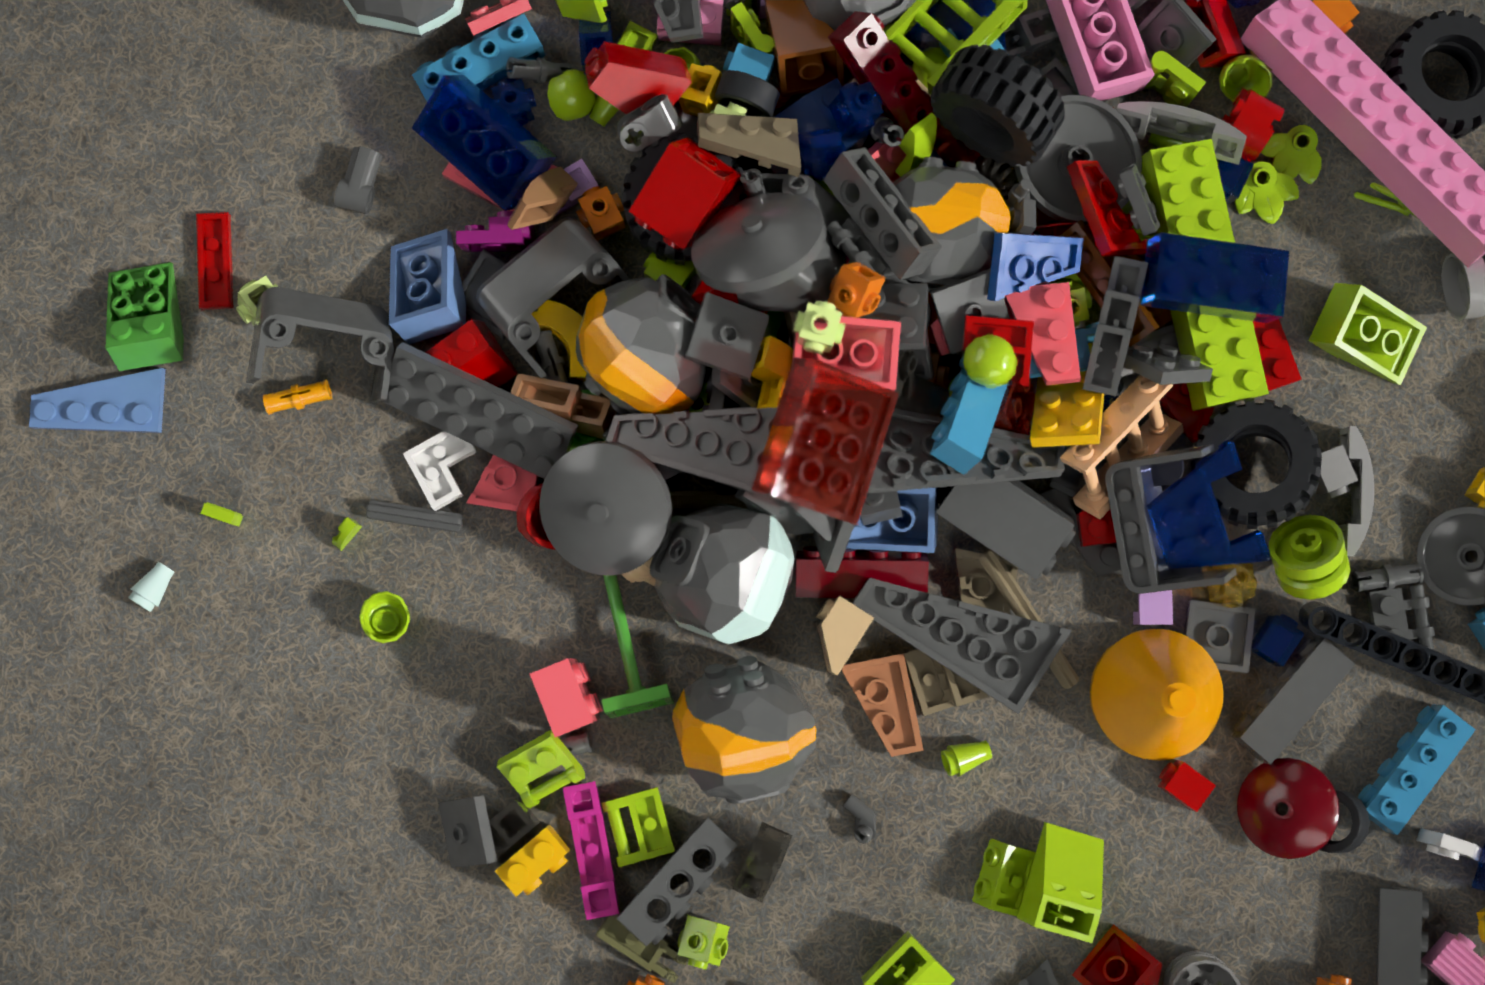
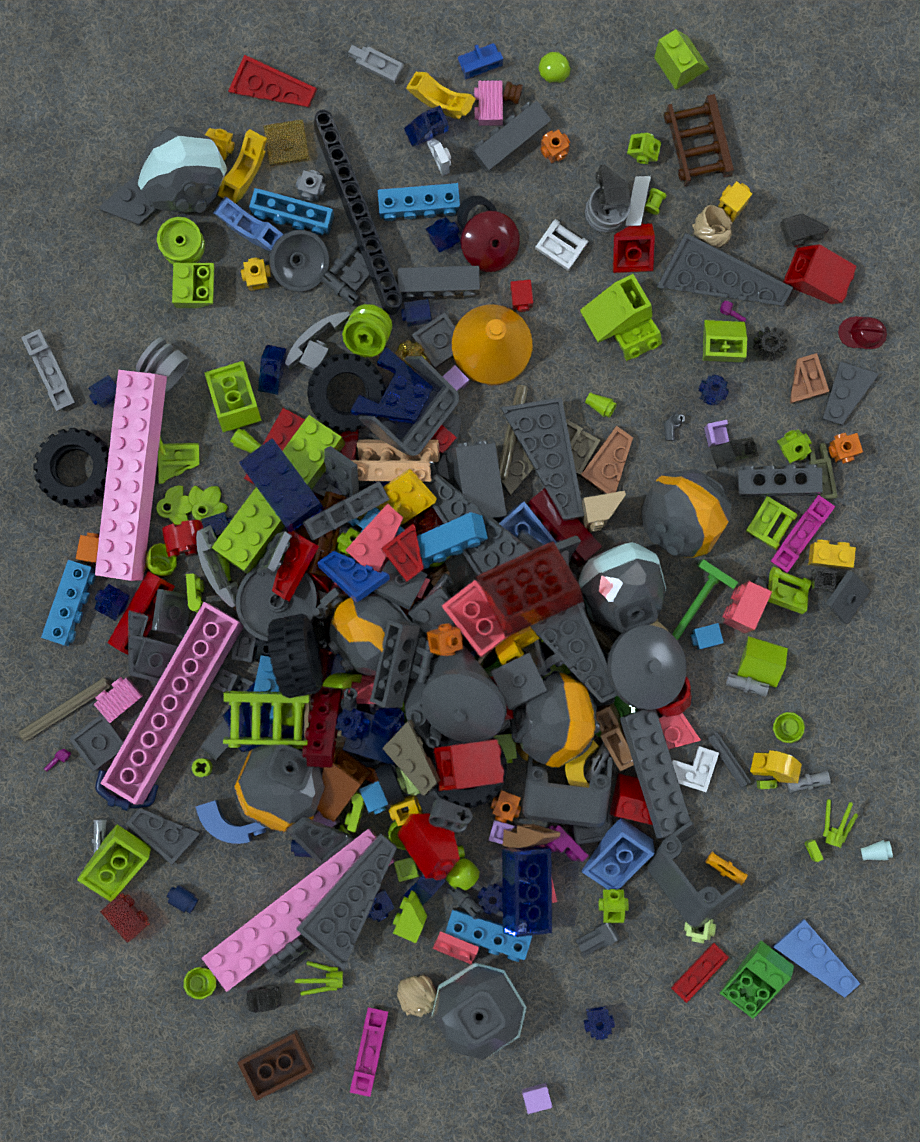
camera: 130 degrees left, 0 degrees up
(213, 557) = (838, 836): none -> lime plant
(267, 95) = (596, 1015): none -> clear blue brick
(303, 583) = (810, 781): none -> light grey pin
(354, 561) = (776, 764): none -> yellow brick
(377, 229) = (613, 906): none -> lime brick
(478, 617) = (747, 684): none -> light grey pin
(488, 661) = (763, 661): none -> lime slope
(577, 622) = (706, 636): none -> dark azure brick
(803, 863) = (716, 433): none -> lavender panel
(819, 340) = (484, 646): yellowish green brick -> none
(854, 896) = (713, 397): none -> clear blue brick
(990, 361) = (419, 551): lime hair -> none
(1203, 882) = (559, 250): none -> white plate
(1304, 298) = (244, 441): none -> lime cone
(1347, 759) = (443, 234): none -> clear blue brick
(1349, 202) = (177, 459): none -> lime wing
(1362, 407) = (271, 369): none -> clear blue slope

